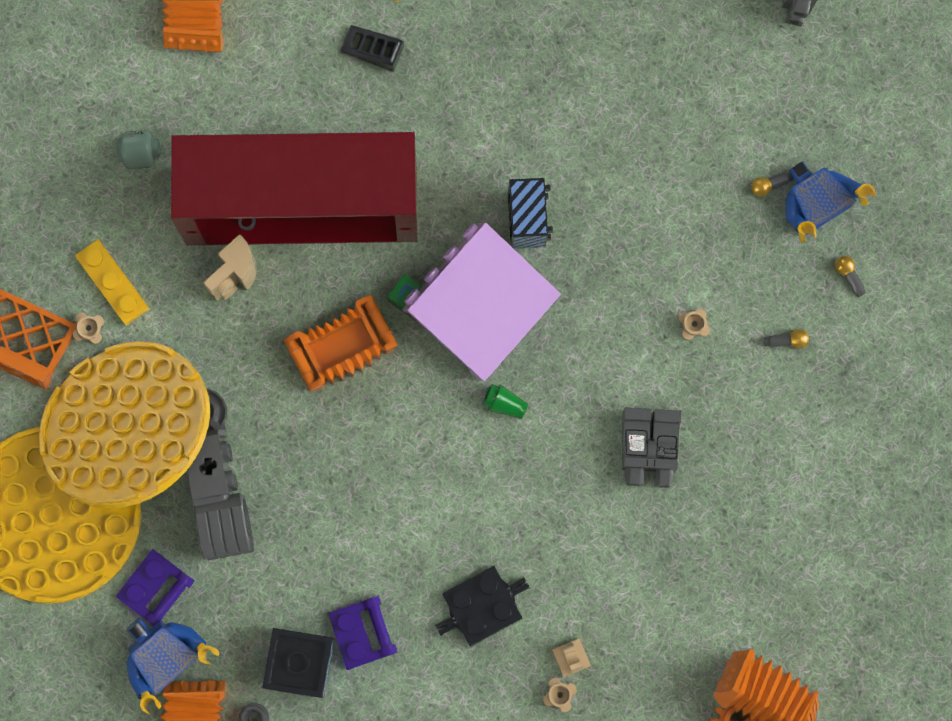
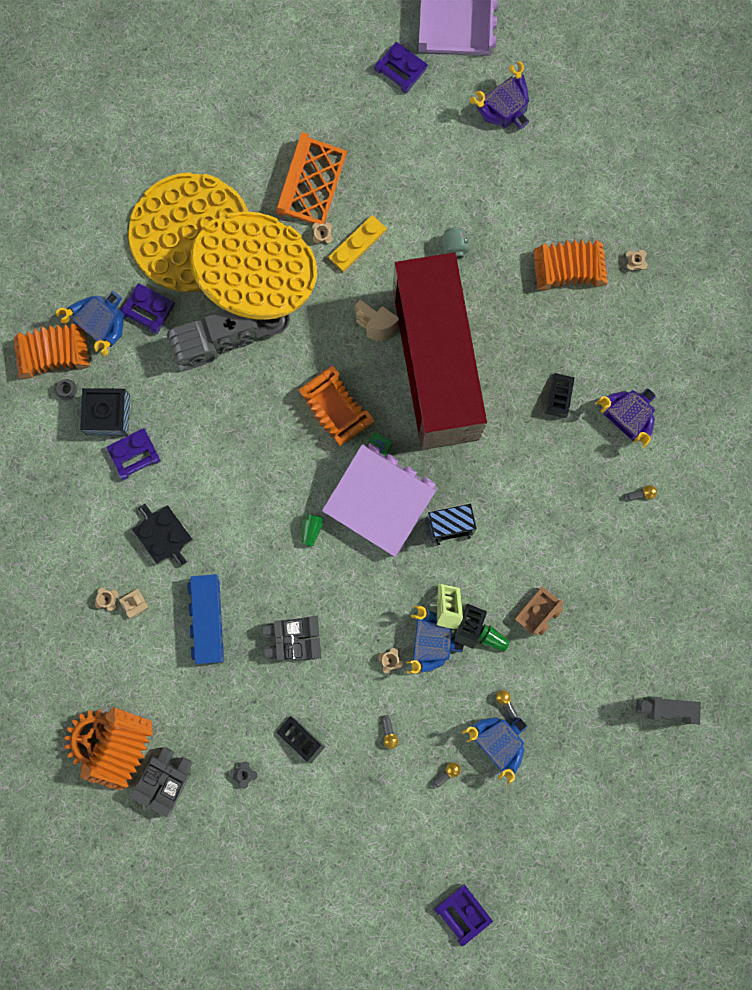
camera: 90 degrees right, 0 degrees up
(608, 559) = (206, 619): none -> blue brick
(651, 240) = (449, 608): none -> yellowish green slope
(658, 121) = (539, 611): none -> medium nougat bracket
(676, 226) = (467, 639): none -> black slope
(679, 264) = (431, 643): none -> blue torso
(683, 188) = (492, 638): none -> green cone
(801, 441) = (295, 745): none -> black slope
(808, 638) = (164, 774): none -> dark grey hips
(810, 534) = (250, 775): none -> dark grey plate

